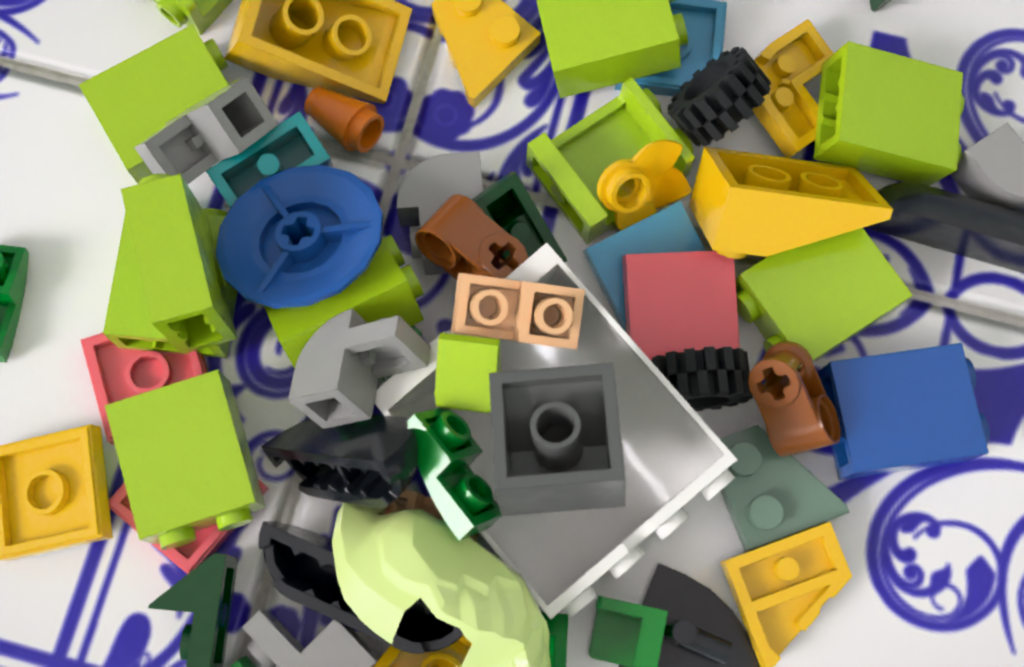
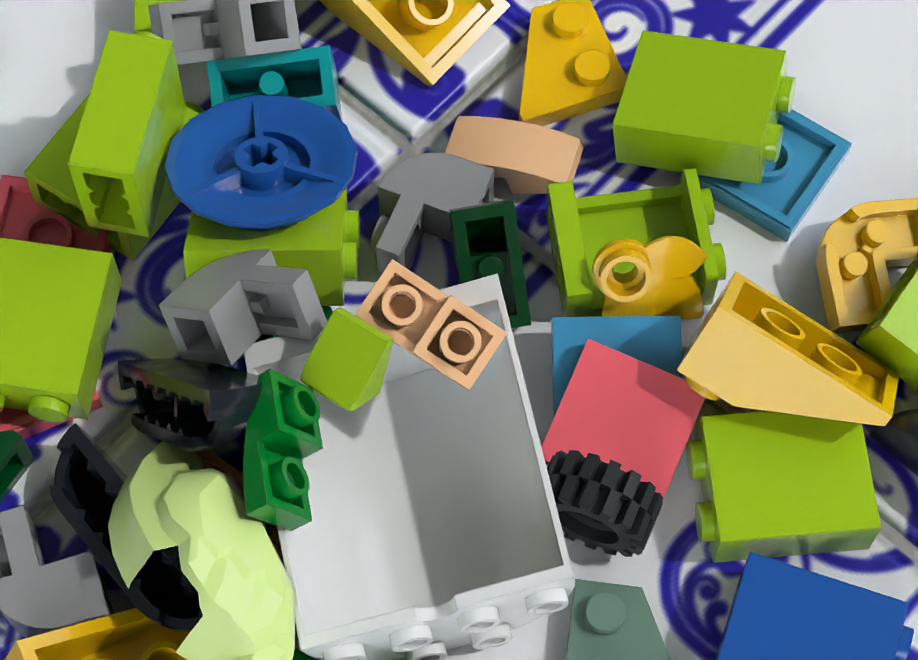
camera: 30 degrees right, 10 degrees down
(346, 119) = (380, 82): orange cone -> none
(468, 241) = (426, 241): dark orange piece -> none
(488, 125) = (517, 151): none -> light nougat slope
(556, 439) = (395, 464): dark grey slope -> none
(719, 97) = (777, 227): black tyre -> none
(797, 409) = (684, 575): dark orange piece -> none

